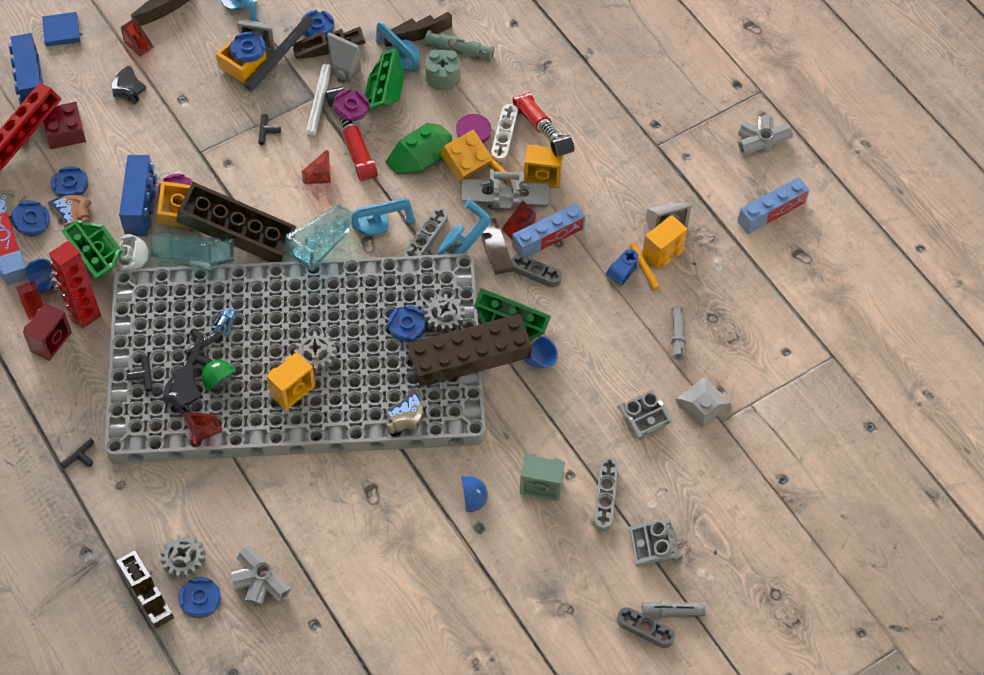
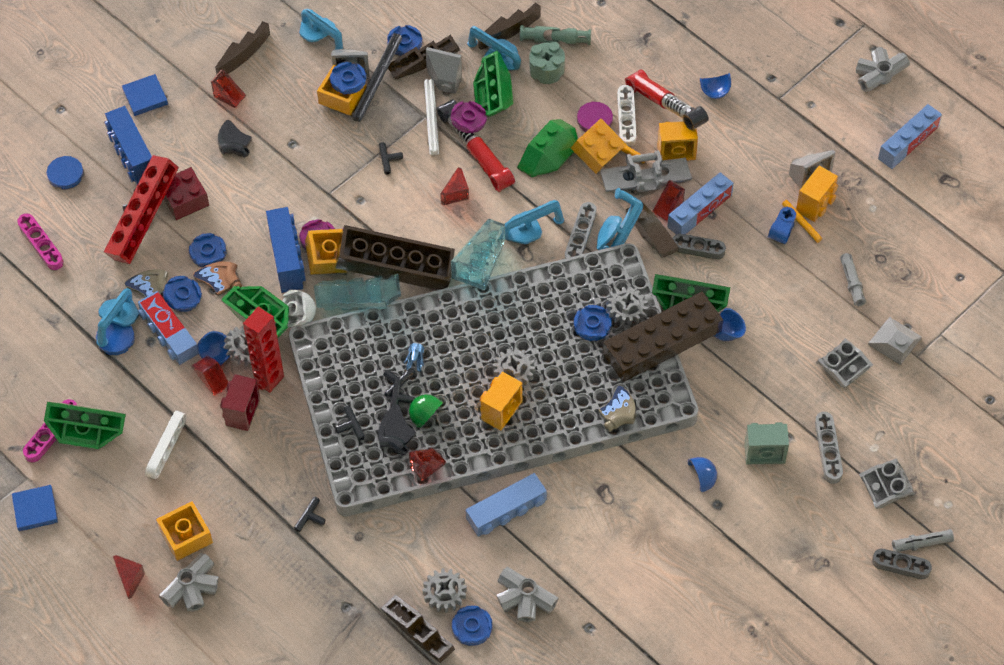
camera: 10 degrees left, 0 degrees up
(270, 484) = (506, 505): none -> medium blue brick
(597, 122) = (716, 86): none -> blue helmet

